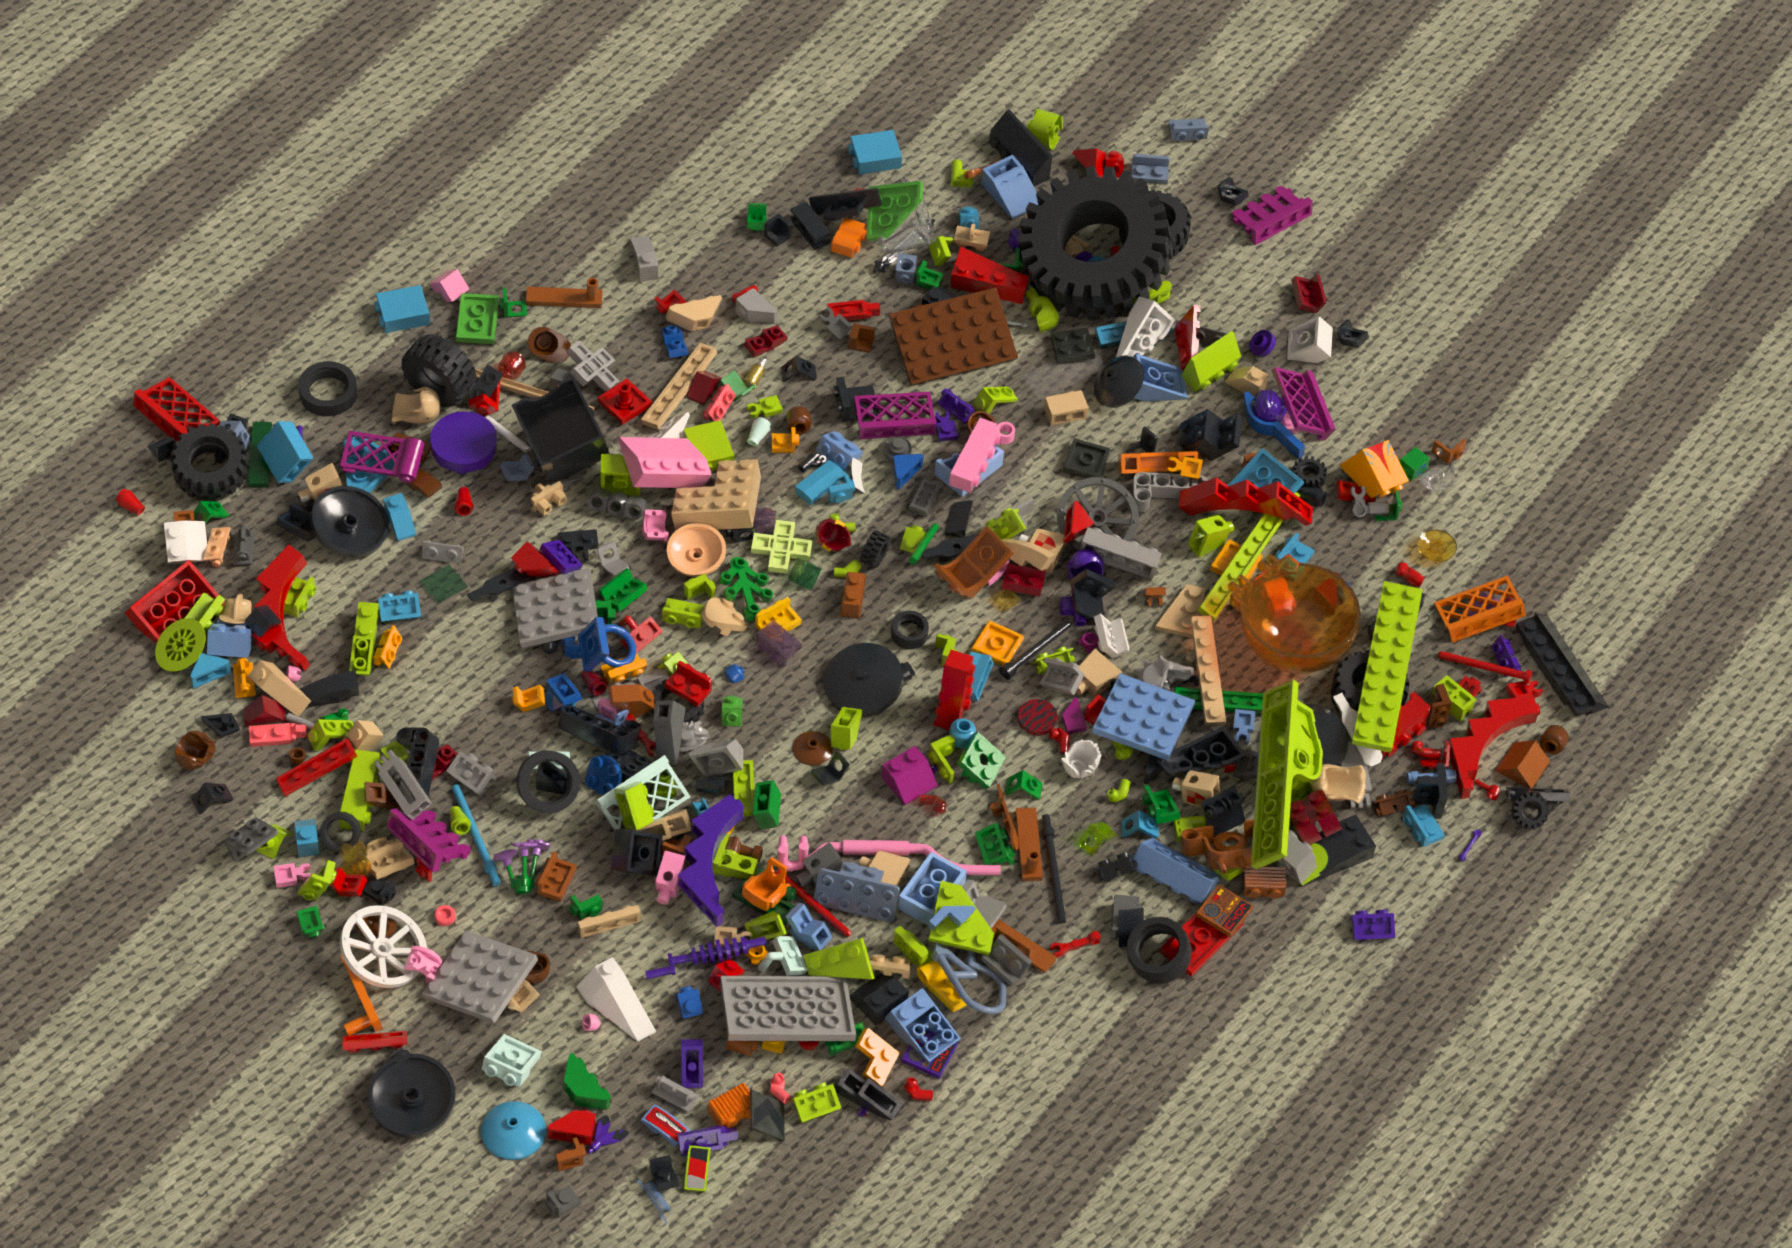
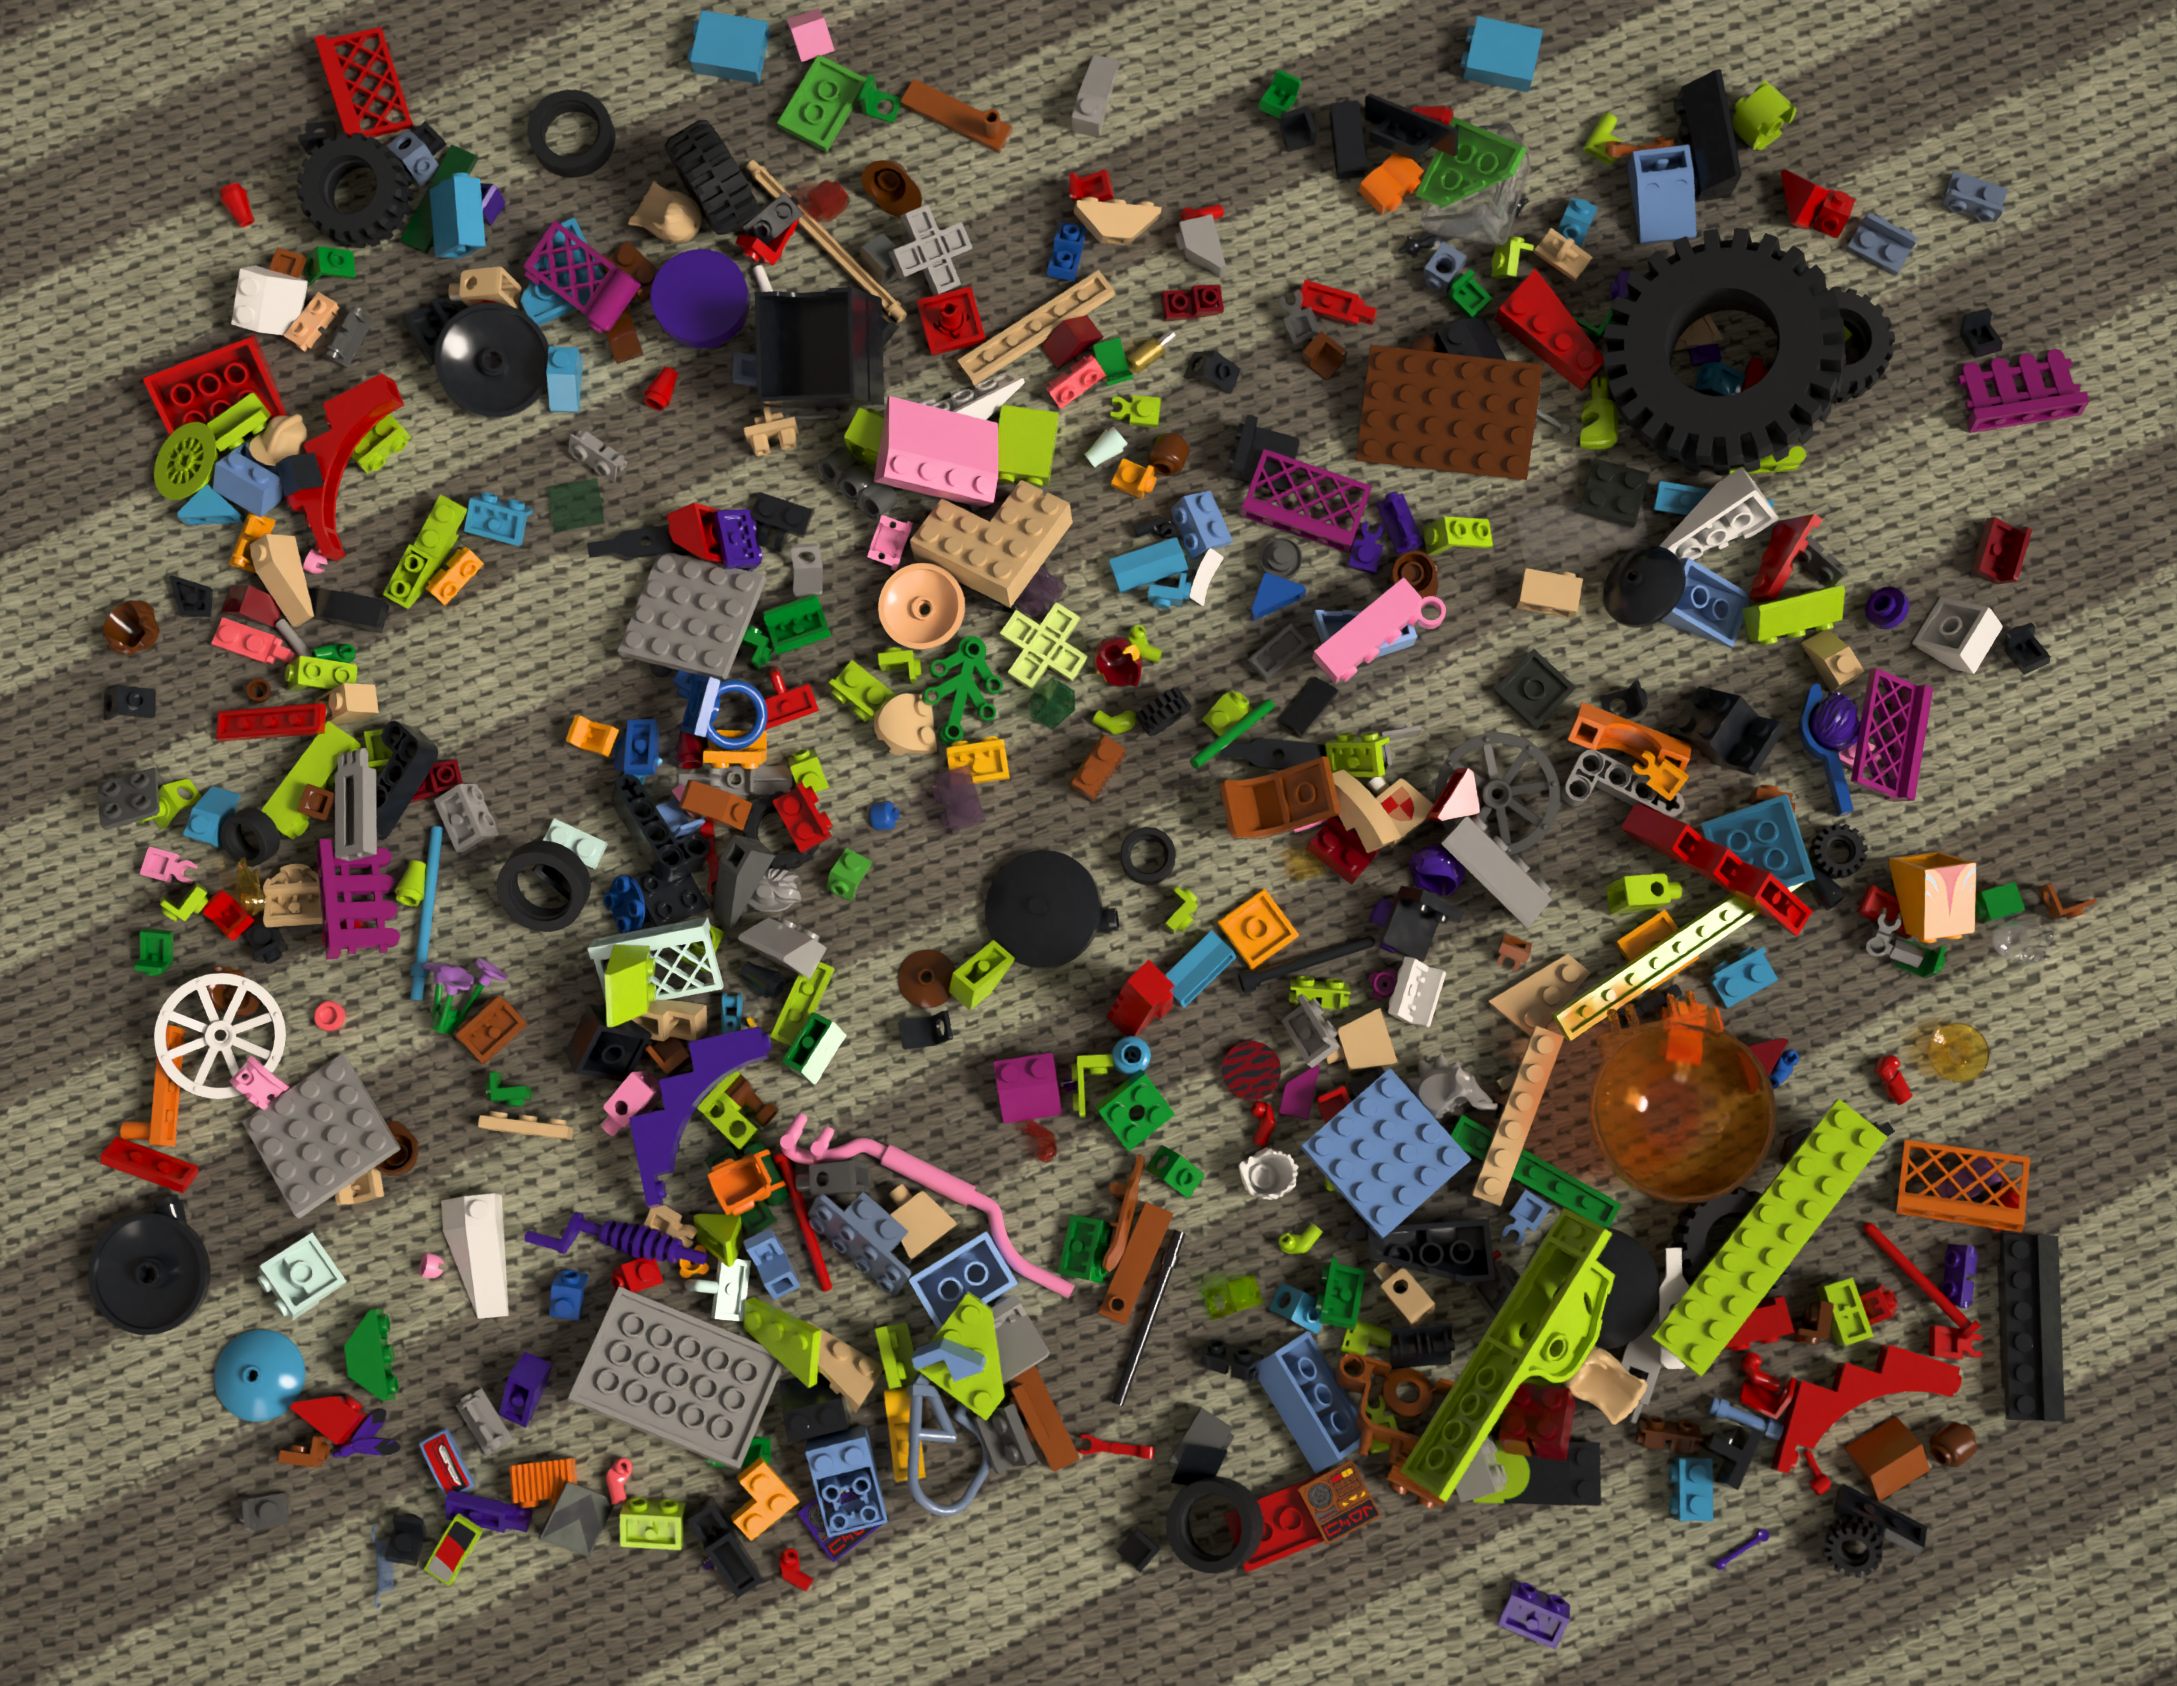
camera: 35 degrees right, 25 degrees up
(1121, 987) = (1138, 1549): none -> black panel

